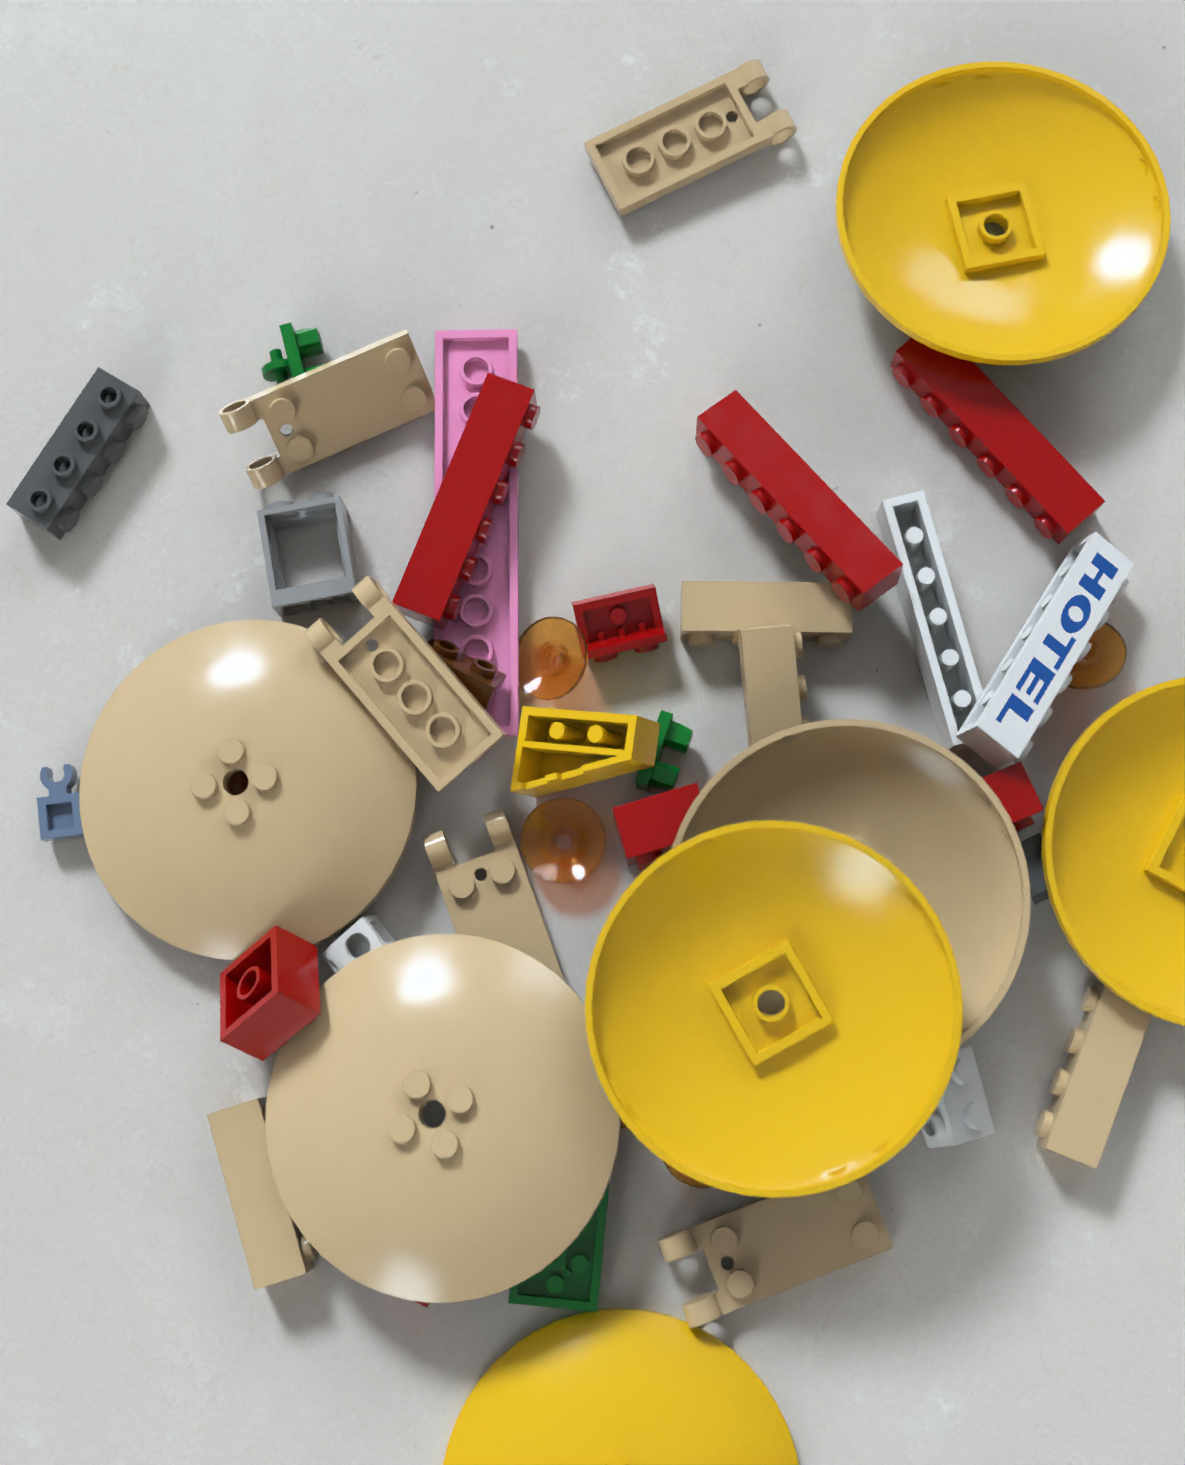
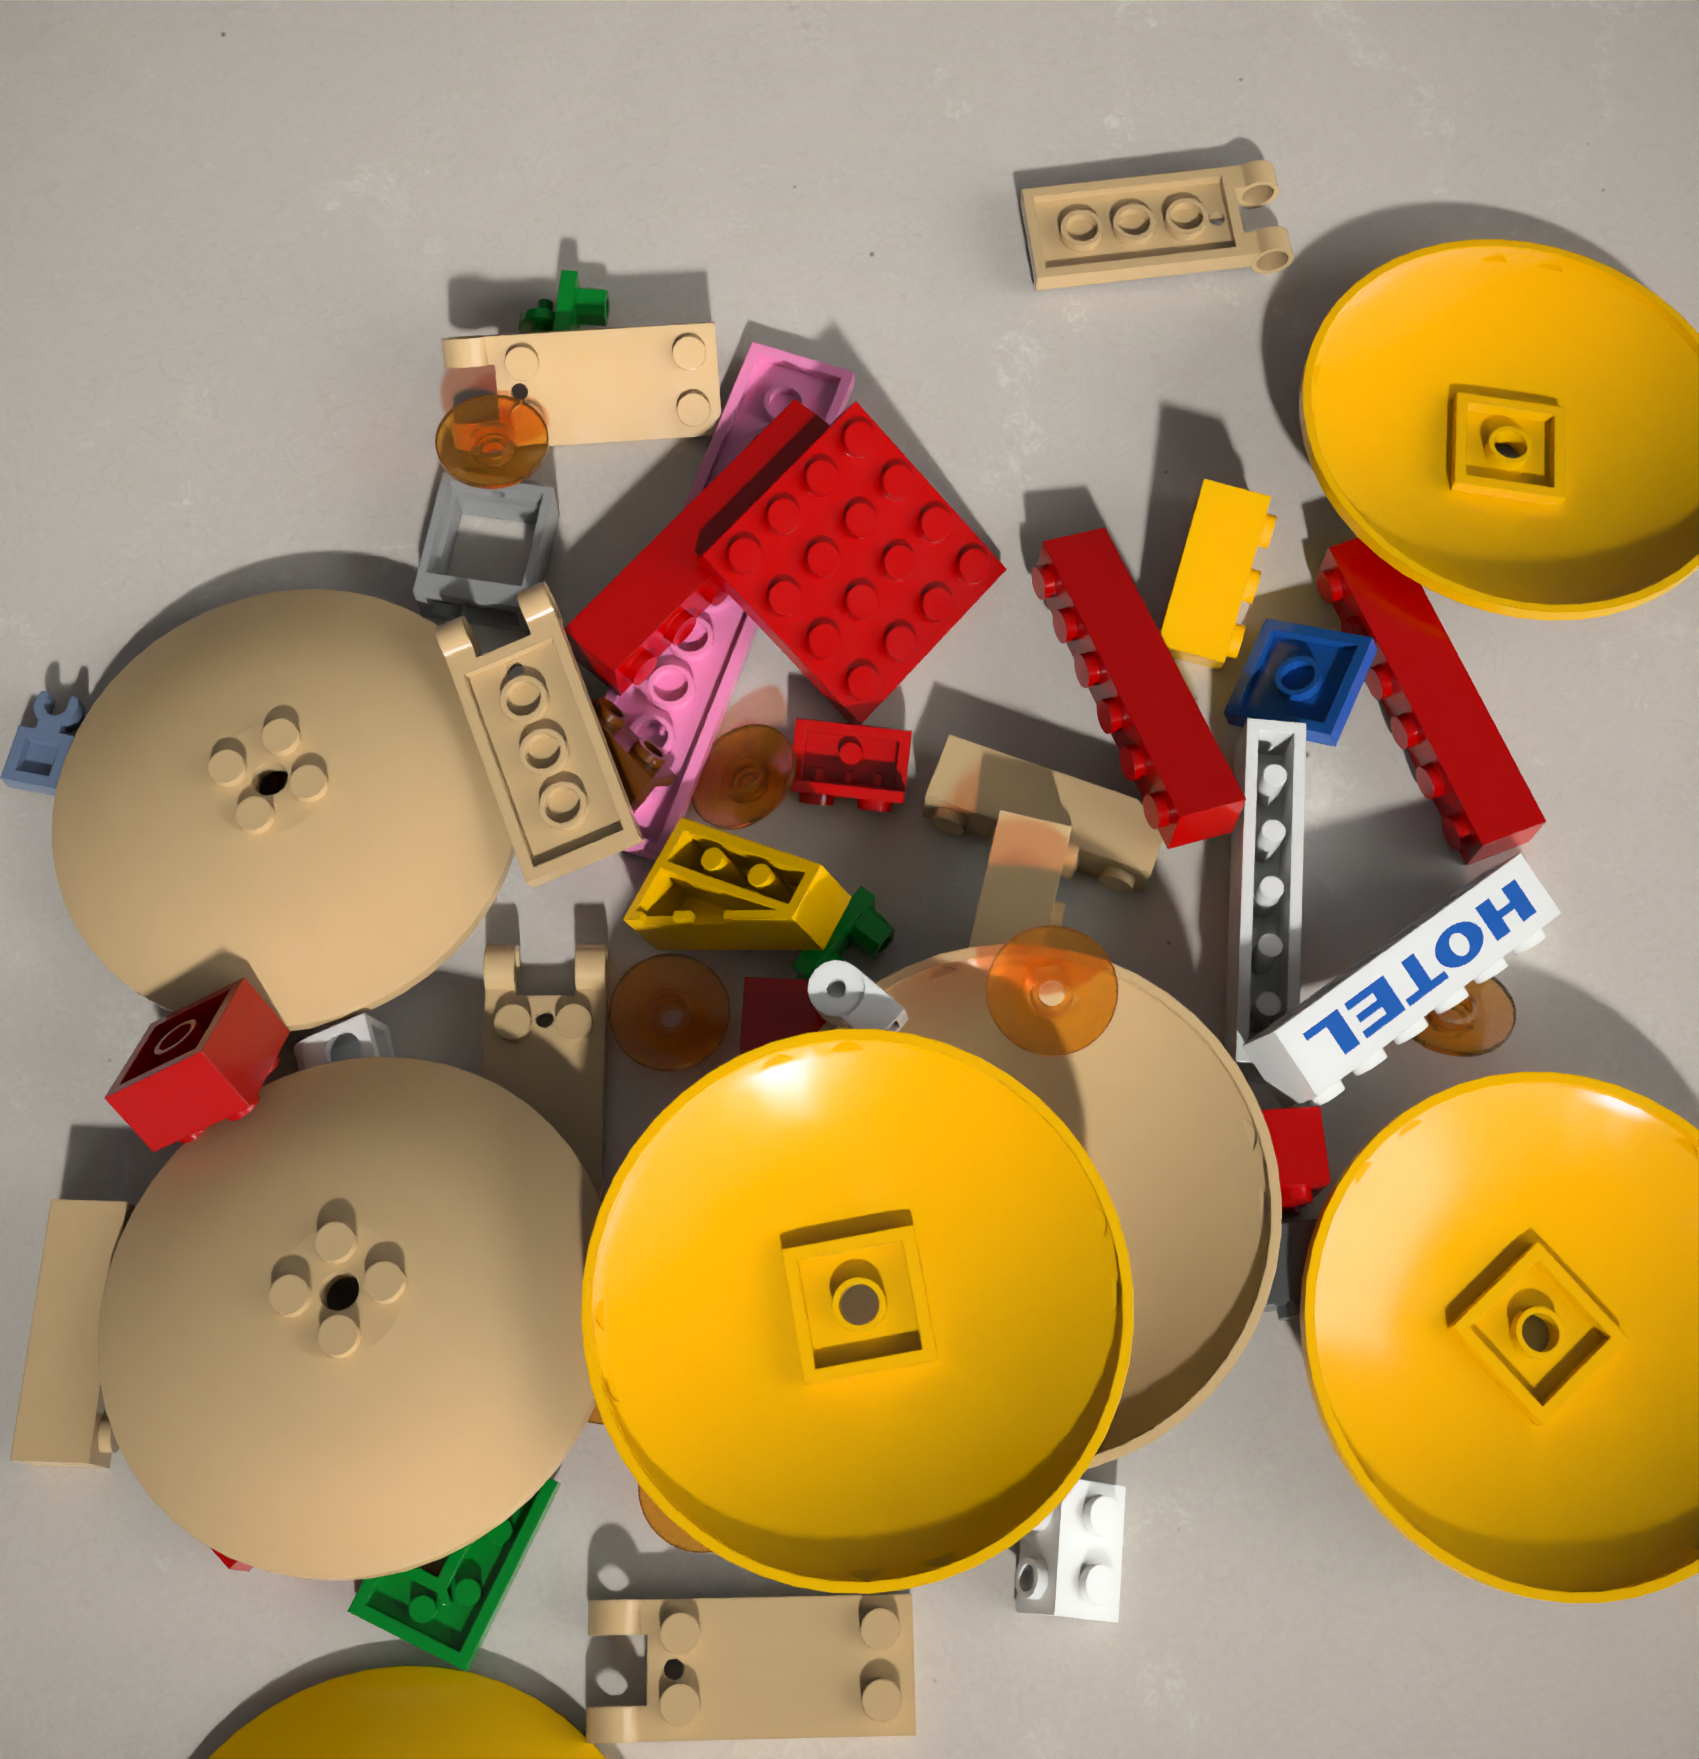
camera: 10 degrees right, 10 degrees down
(79, 454) = (255, 341): dark grey brick -> none
(279, 461) = (486, 426): none -> clear orange dish
(570, 478) = (852, 564): none -> red plate
(694, 805) = (852, 999): none -> white leg
(823, 398) = (1216, 574): none -> yellow wedge
(851, 755) = (1060, 958): none -> clear orange dish
(907, 454) = (1302, 678): none -> blue plate
(1093, 1078) = (1283, 1593): tan brick -> none

